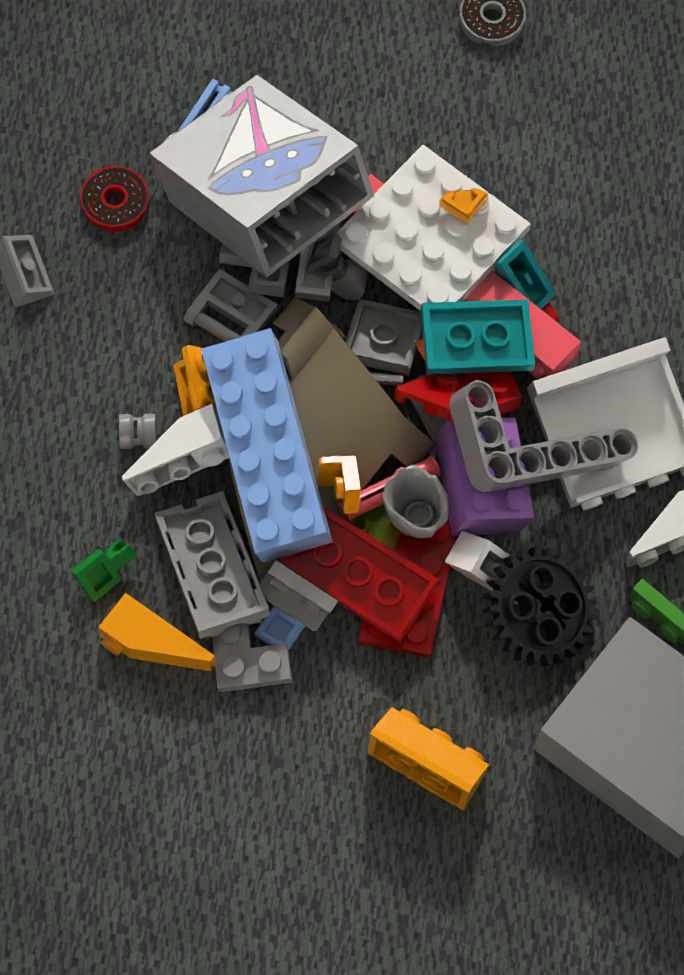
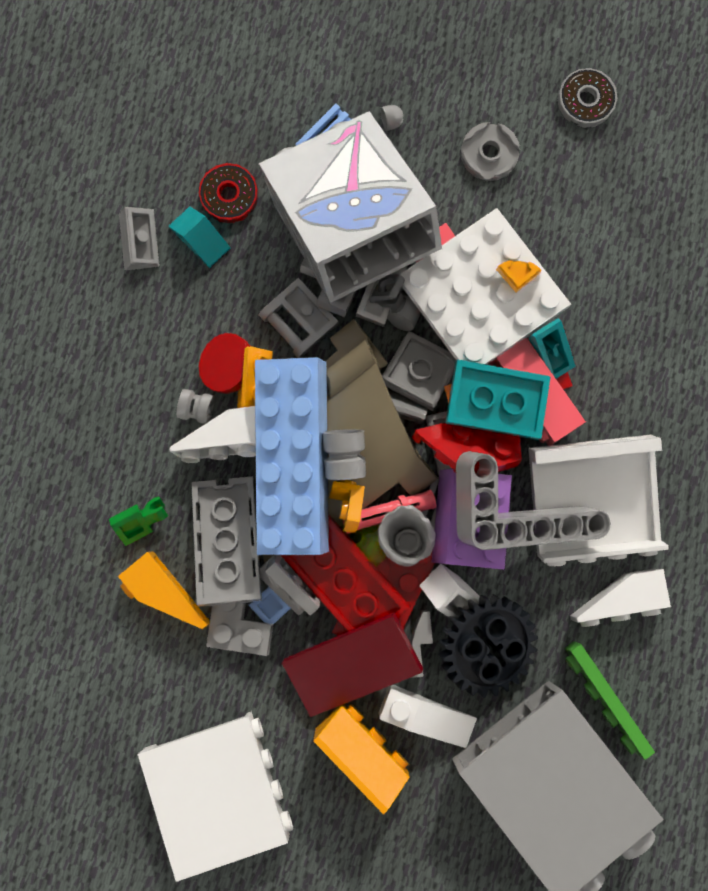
camera: 15 degrees right, 15 degrees up
(94, 249) = (200, 236): none -> teal slope
(159, 377) = (223, 363): none -> red tile
(271, 843) = (215, 796): none -> white panel
(279, 78) = (391, 117): none -> light grey hinge
(326, 431) = (344, 454): none -> light grey wheel
(391, 660) = (352, 665): none -> dark red tile
(394, 109) = (486, 167): none -> light grey tile
(461, 619) = (421, 634): none -> light grey slope
(490, 703) = (426, 716): none -> white slope

